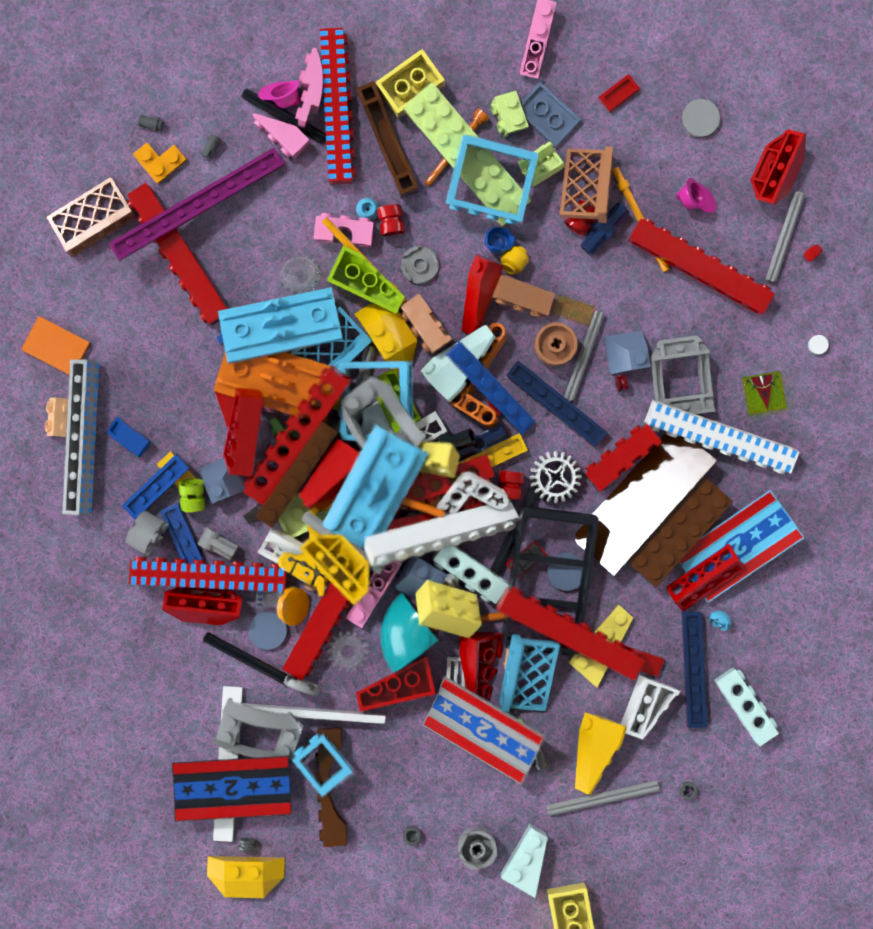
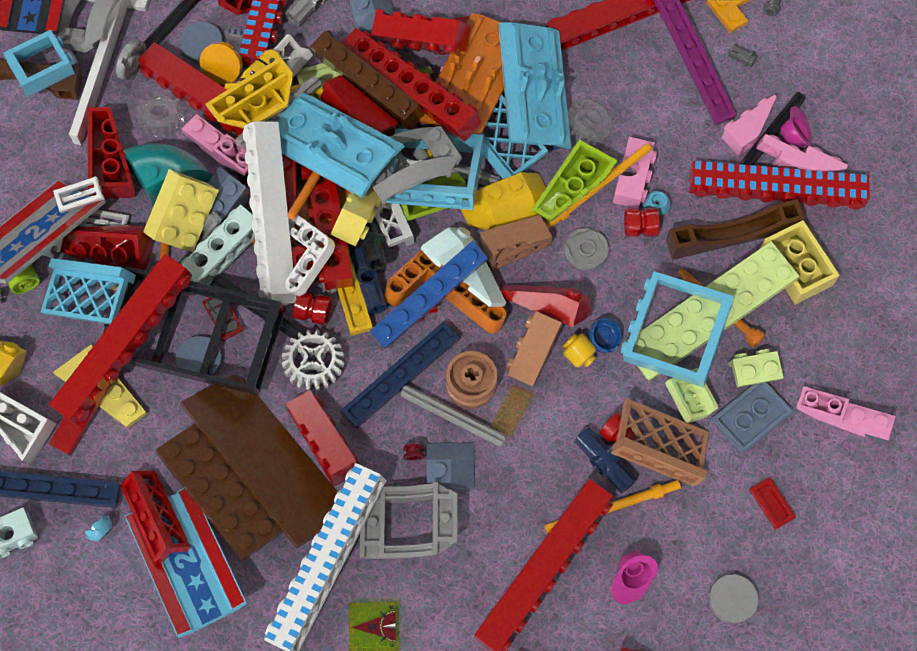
camera: 100 degrees right, 20 degrees down
(437, 684) = (97, 189): none -> white tile

